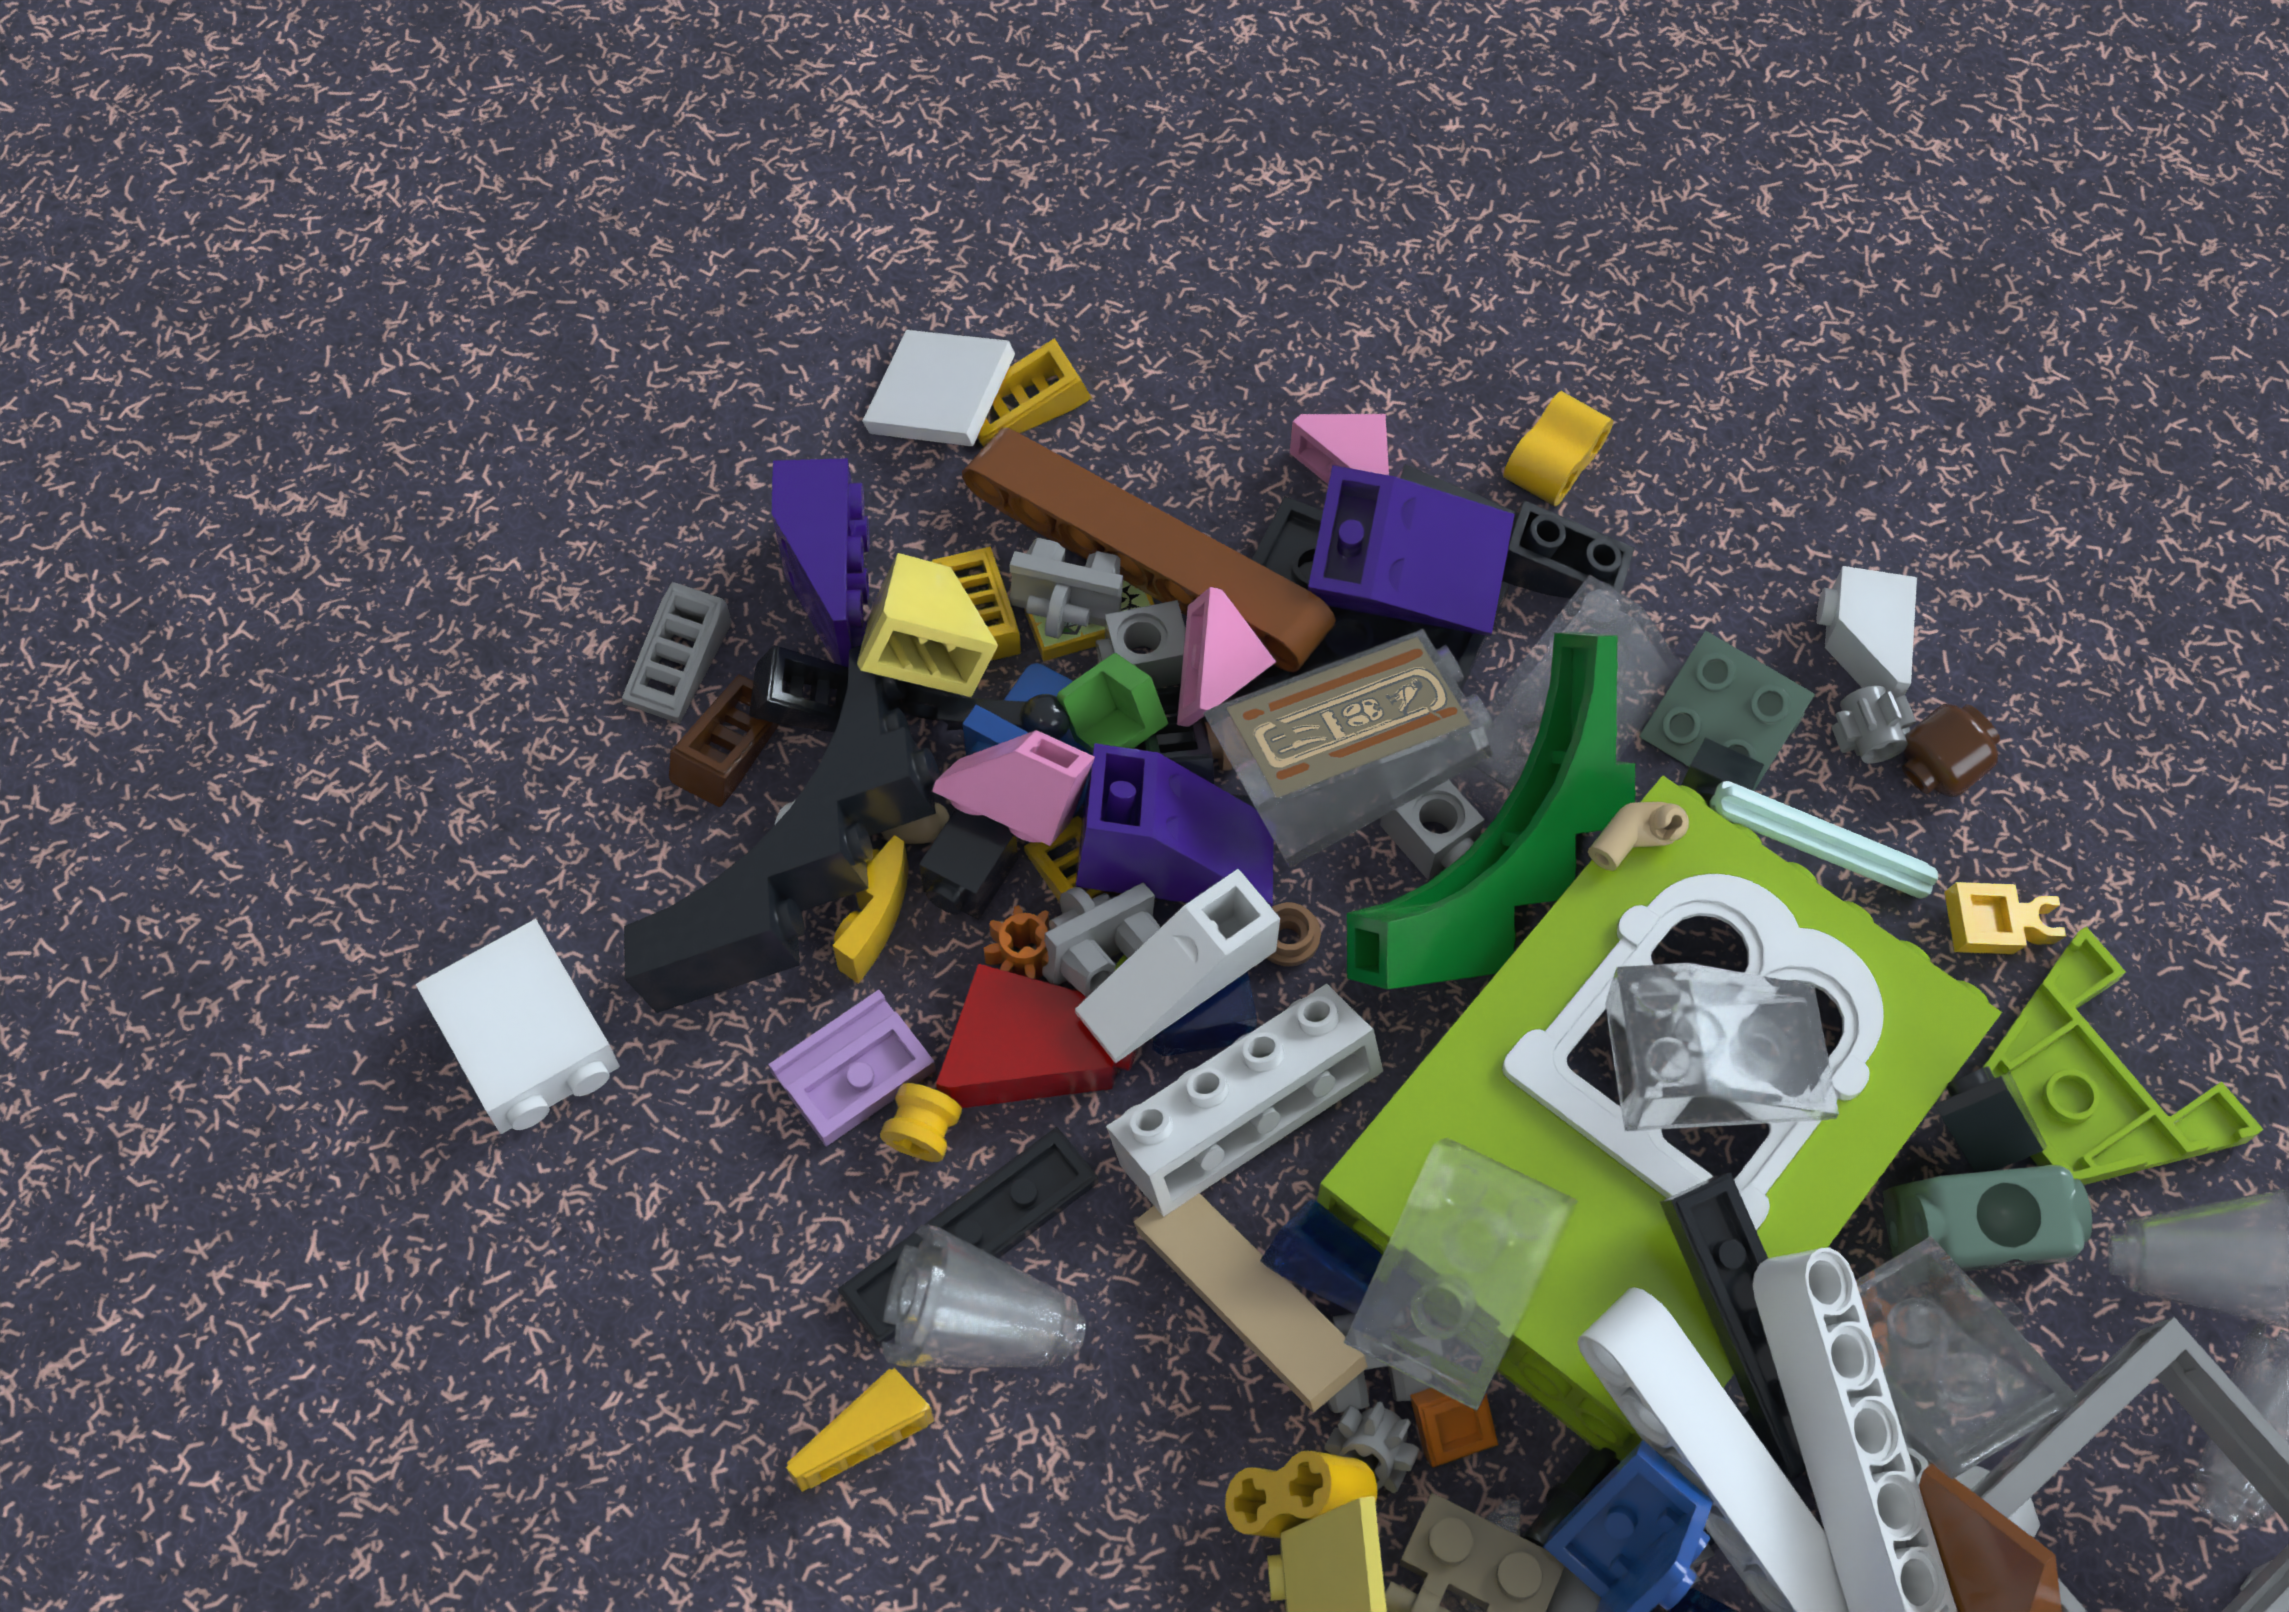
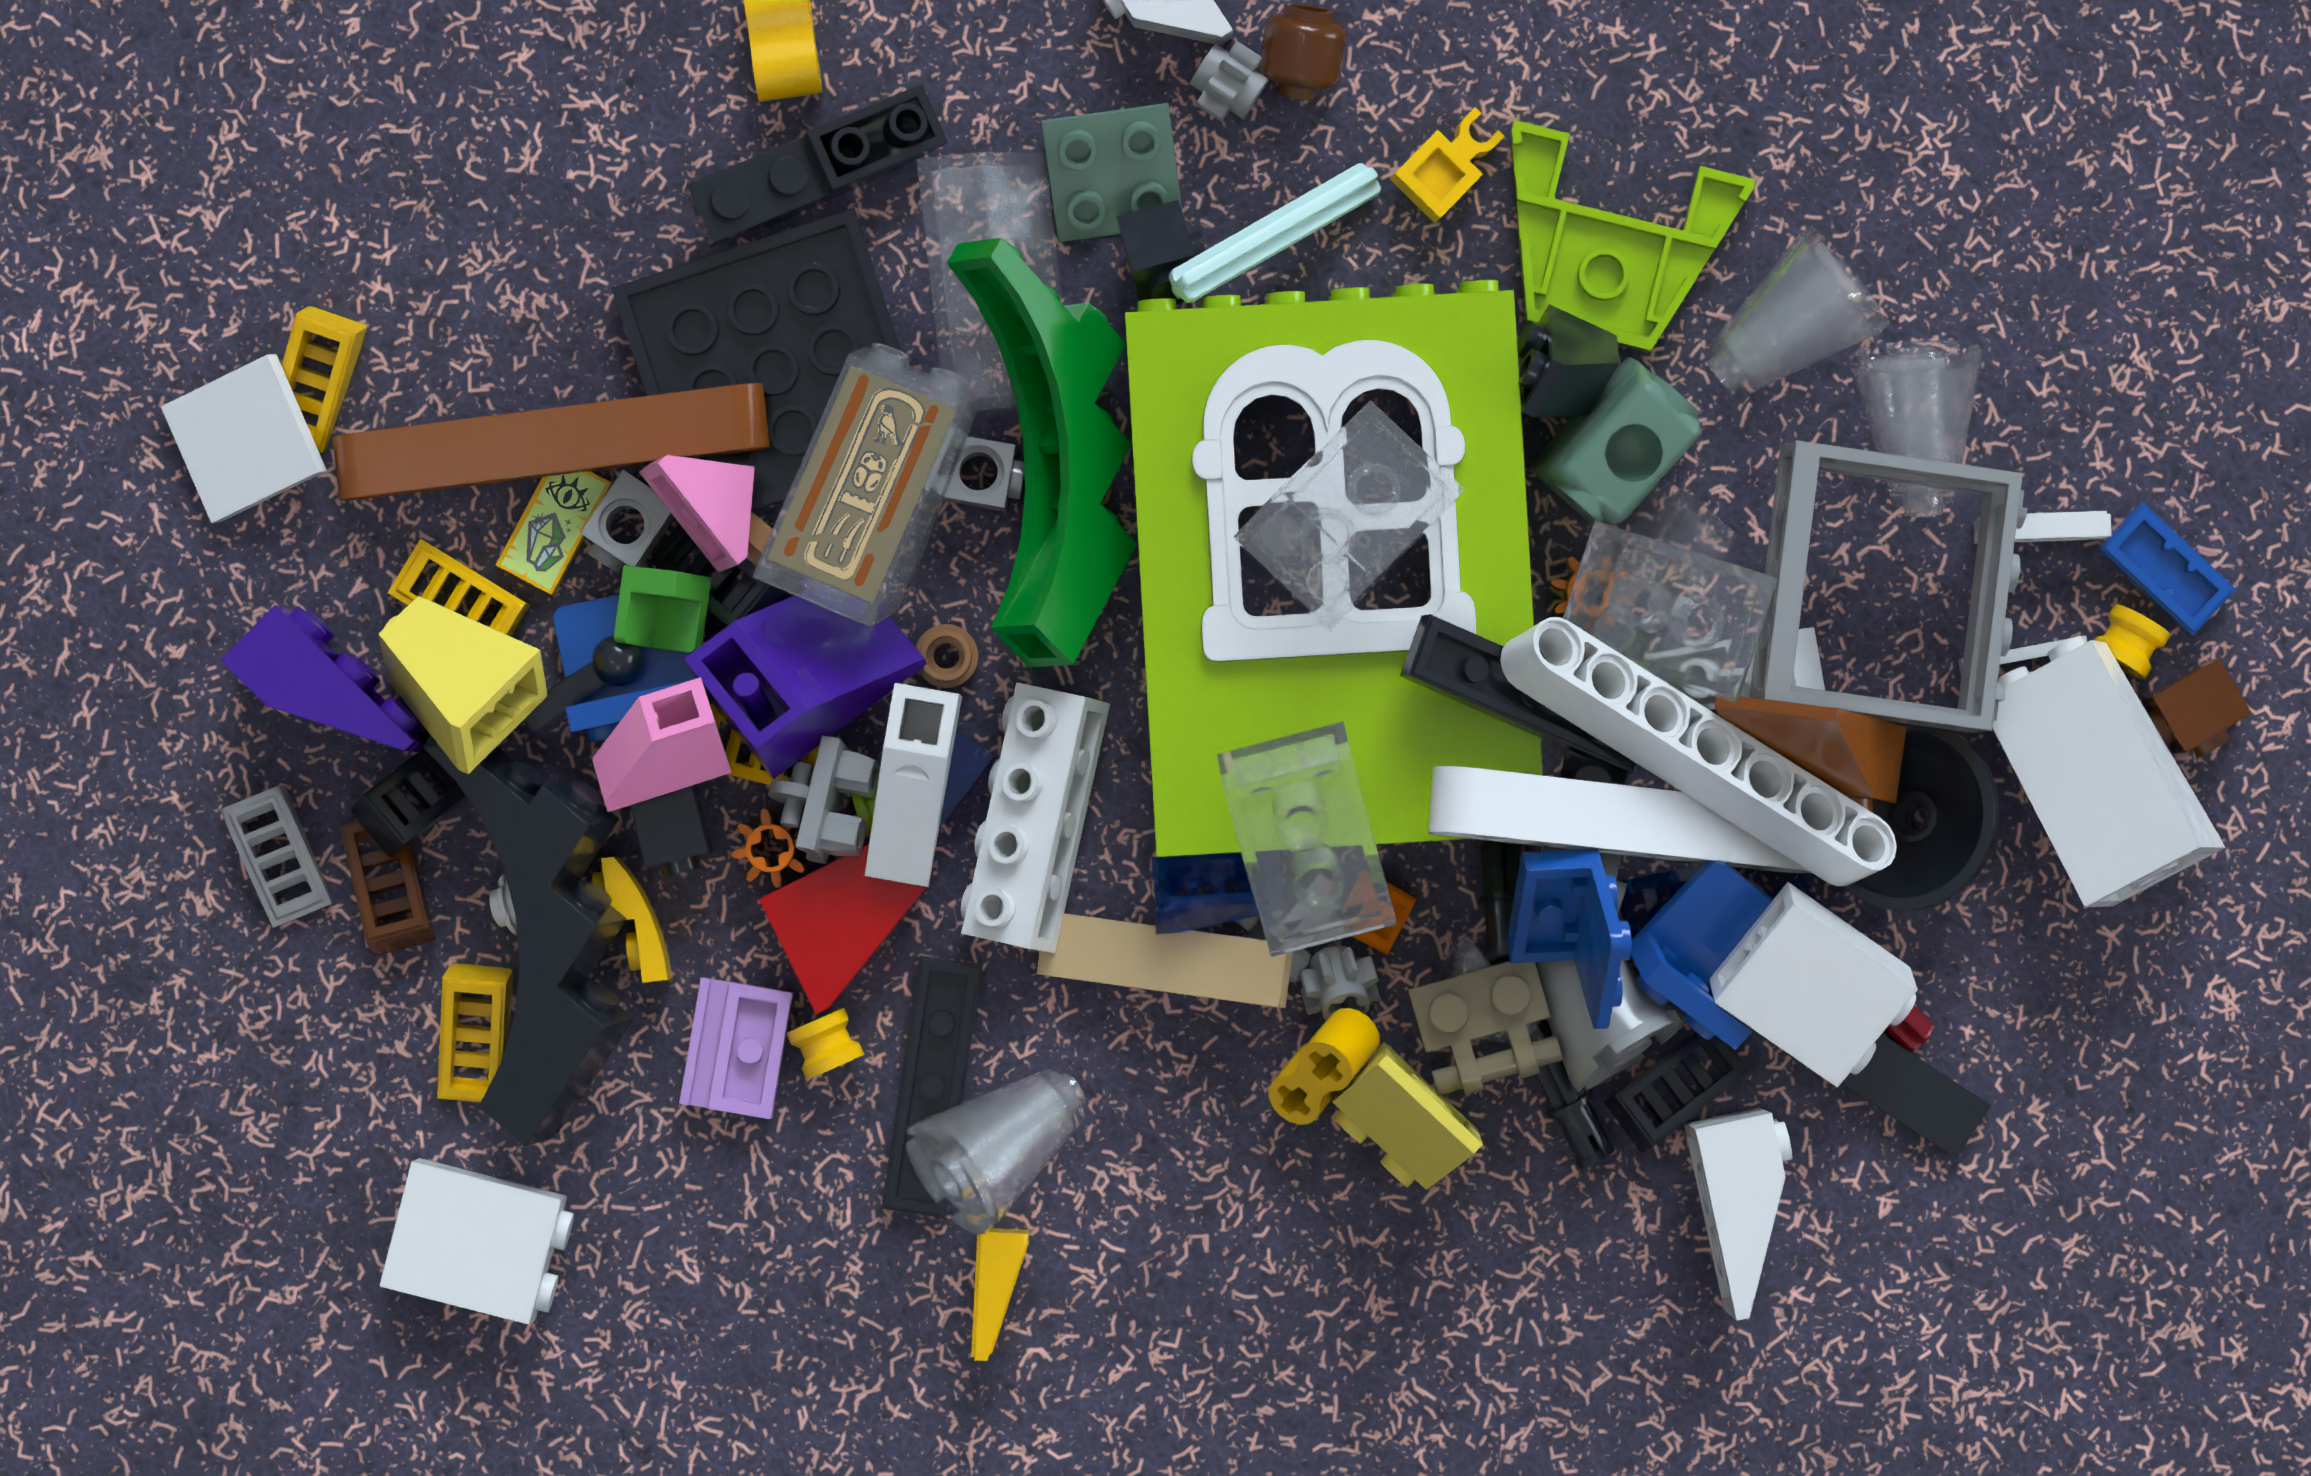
camera: 45 degrees left, 25 degrees up
(663, 872) = (476, 980): none -> yellow slope
(1064, 590) = (502, 547): light grey hips -> none
(1341, 441) = (627, 200): bright pink slope -> none
(1409, 552) = (768, 275): dark purple slope -> none
(1638, 826) = (1145, 380): tan arm -> none

